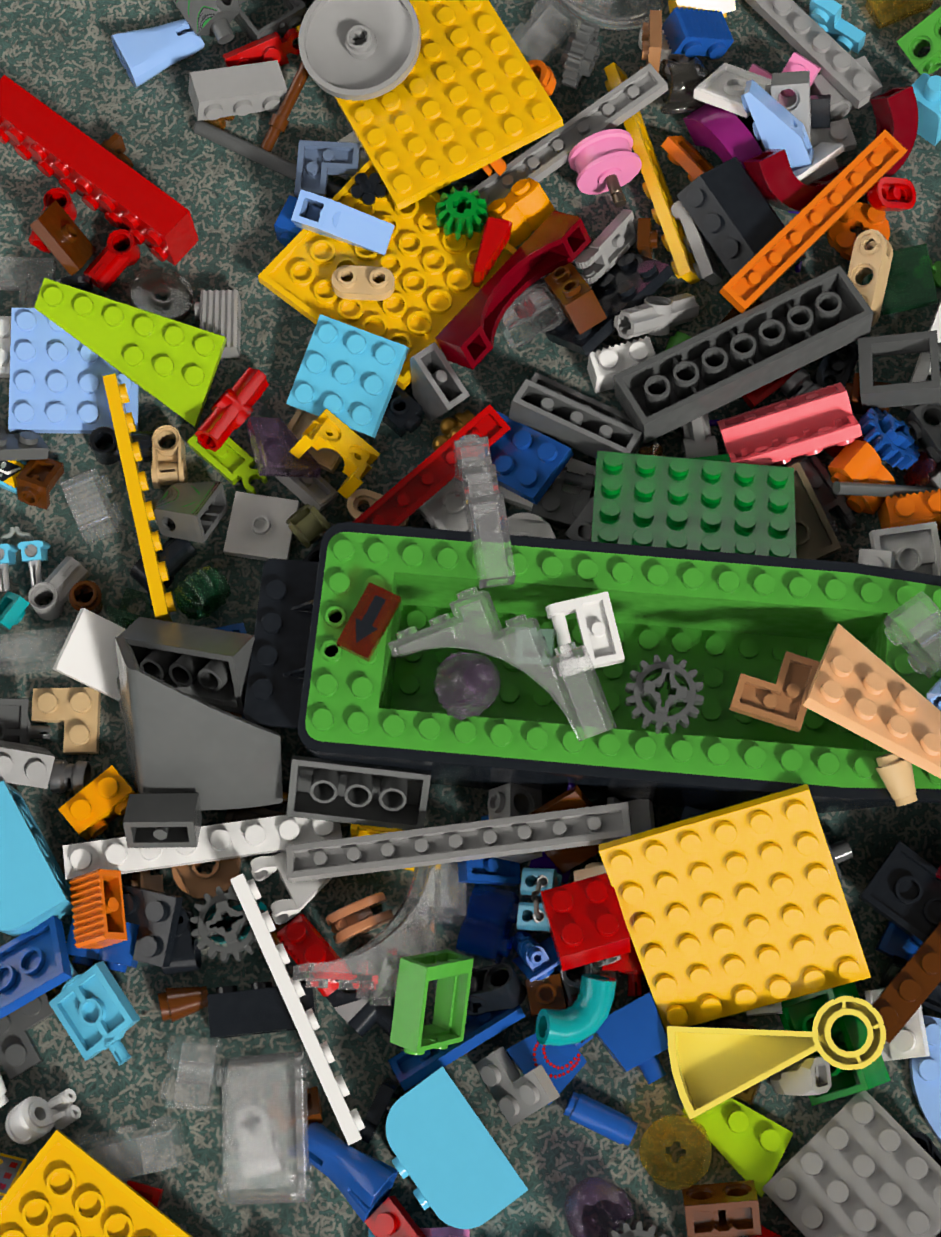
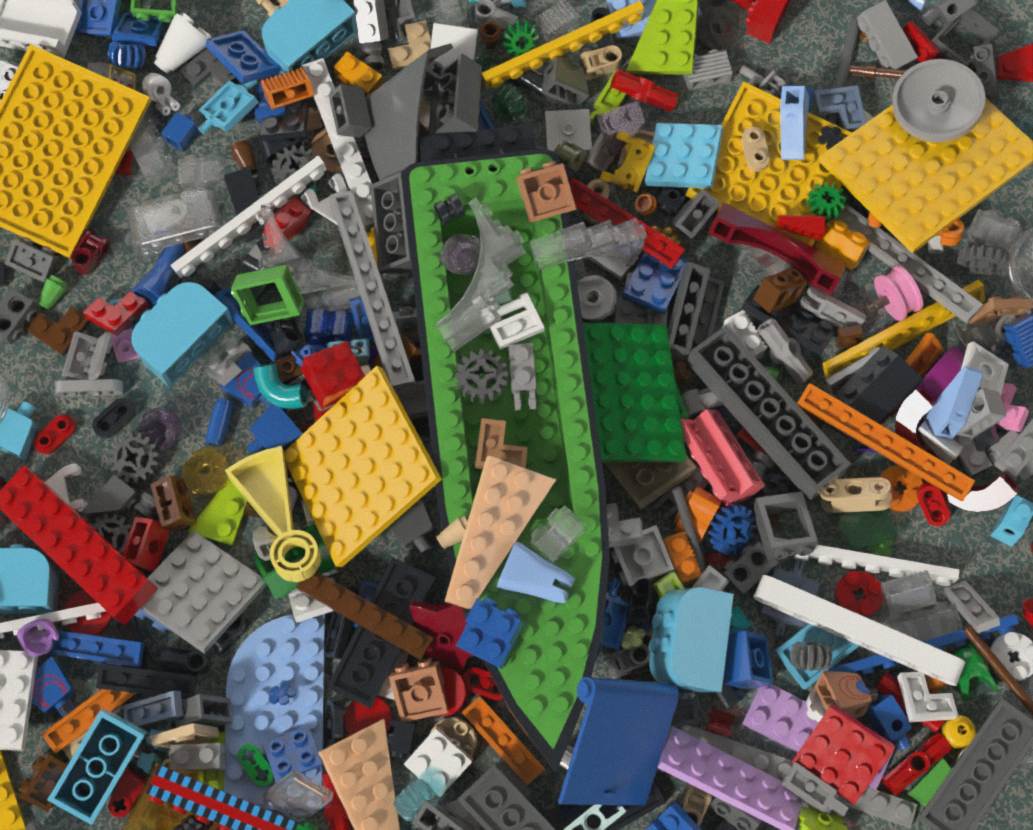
camera: 75 degrees right, 0 degrees up
(105, 557) = (512, 38): none -> green gear
(114, 1095) = (180, 131): none -> blue brick
(250, 264) = (770, 84): none -> light grey arm
(358, 918) = (315, 244): nougat head -> none
(369, 621) = (492, 187): clear red tile -> none
(391, 688) = (449, 209): none -> black wheel
(398, 447) = (646, 204): none -> orange plate
(398, 546) = (545, 191): none -> nougat plate
(666, 636) = (522, 373): none -> light grey hinge

